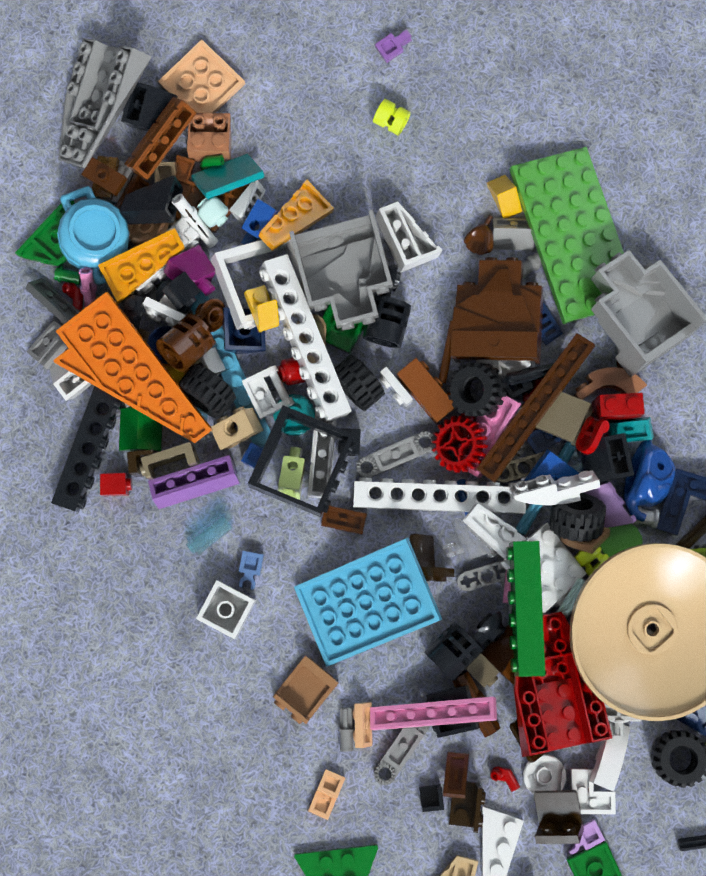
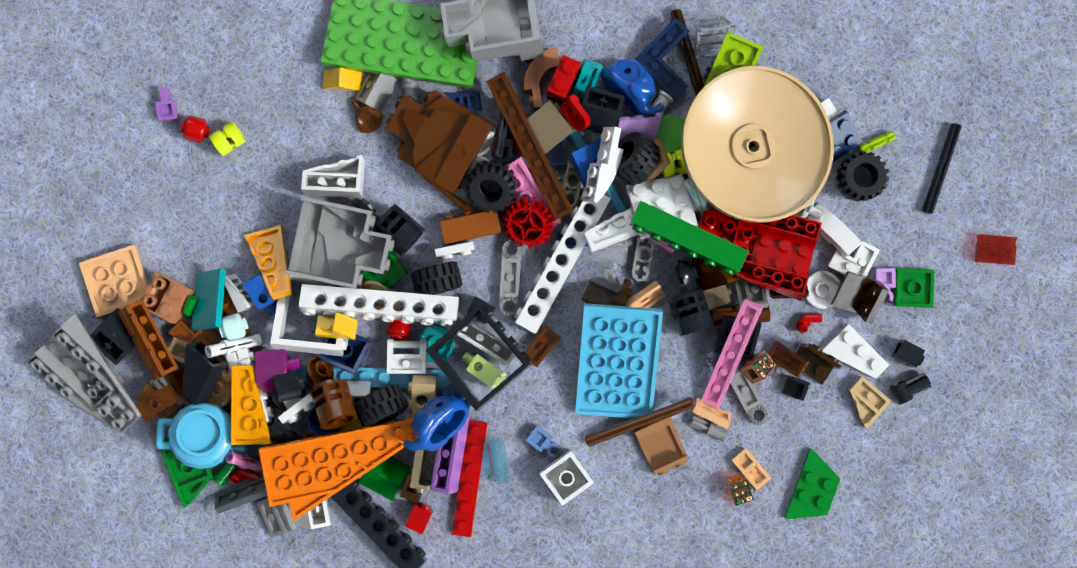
camera: 70 degrees left, 5 degrees up
(178, 515) = (469, 478): none -> red plate
(217, 453) = (438, 422): none -> blue piece
(300, 792) = (739, 489): none -> brick
(318, 656) = (639, 422): none -> reddish brown axle
(384, 82) = (195, 129): none -> red head
(433, 748) = (758, 367): none -> brick
(447, 600) = (647, 296): none -> light nougat plate
(504, 702) = (751, 292): none -> light grey plate

